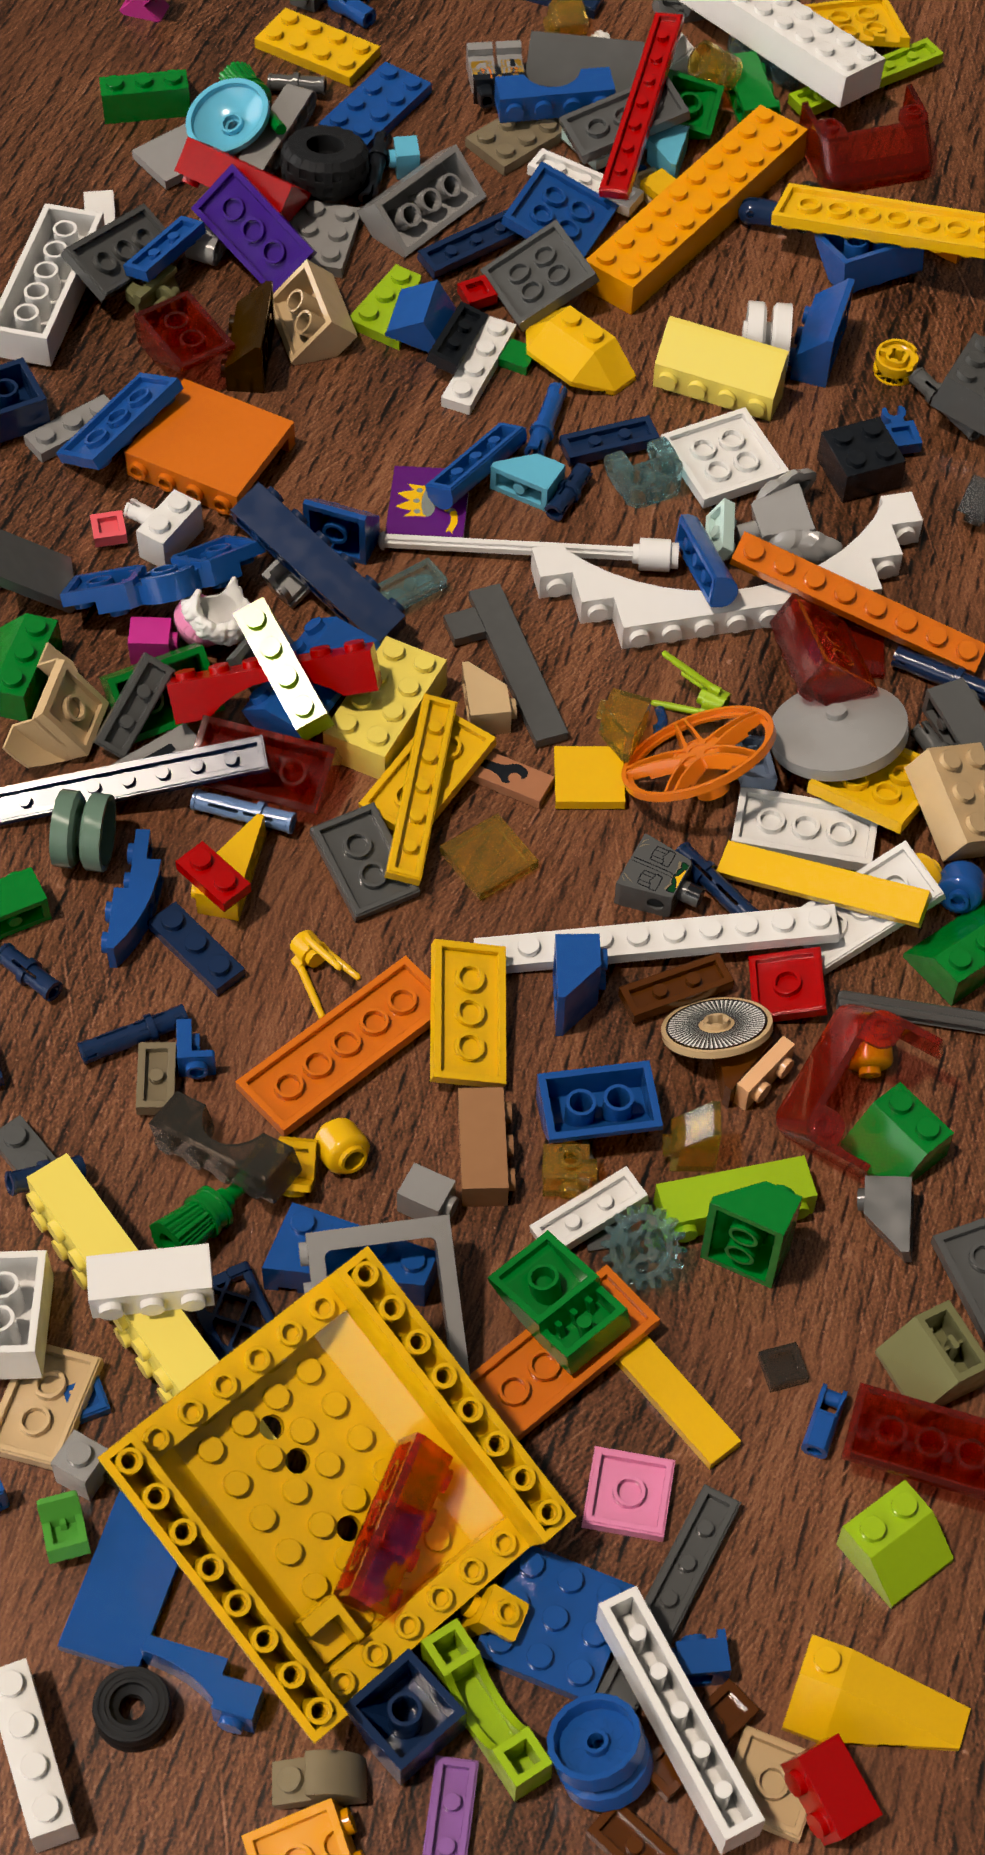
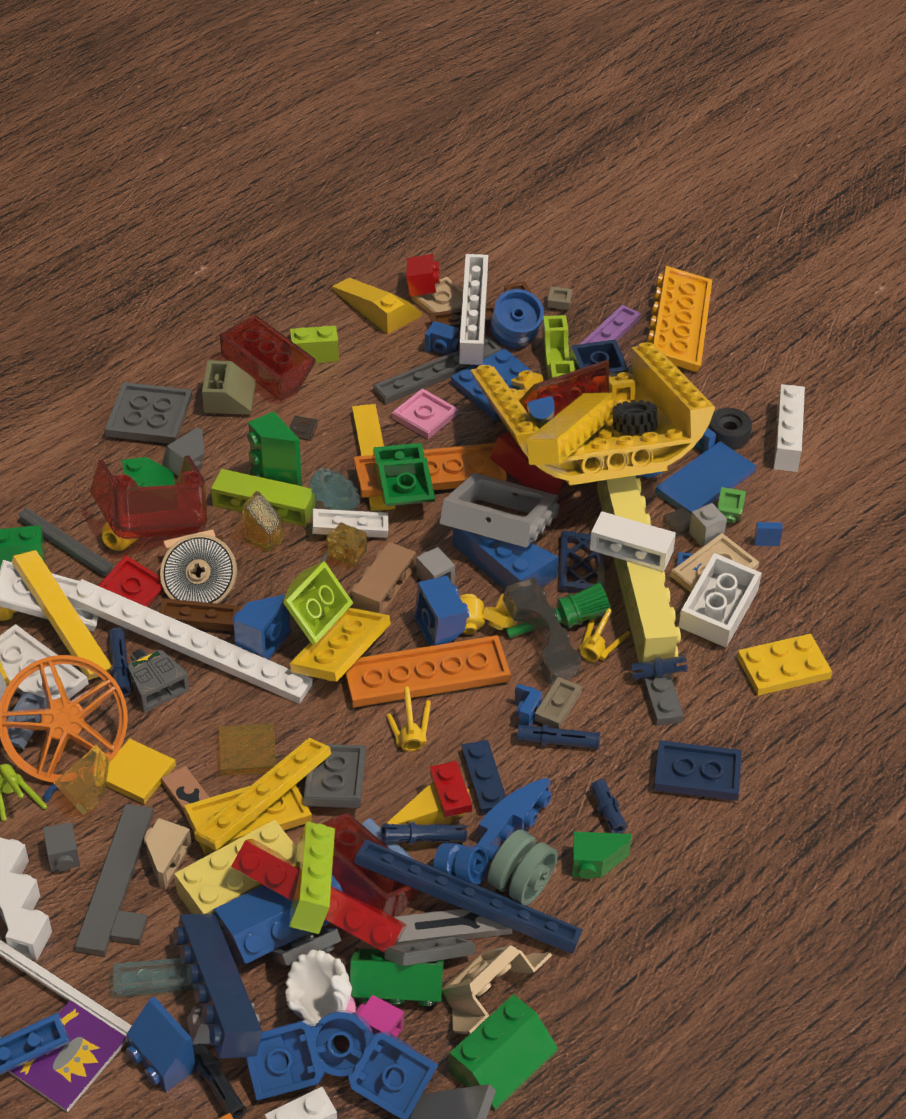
camera: 150 degrees left, 10 degrees down
(151, 1184) = (594, 646): none -> yellow plant
(161, 813) = (462, 861): none -> blue wheel
(230, 822) = (414, 832): none -> dark blue pin
(281, 1515) = (635, 417): none -> black tyre
(314, 1368) = (570, 428): none -> yellow brick
(369, 1102) = (440, 611): none -> blue slope
(373, 1361) = (541, 410): none -> blue brick
(529, 1022) = (316, 601): none -> lime slope
(592, 658) = (61, 847): none -> dark grey brick
(598, 1102) = (296, 550): blue slope -> none
(823, 1423) = (303, 397): blue bar -> none

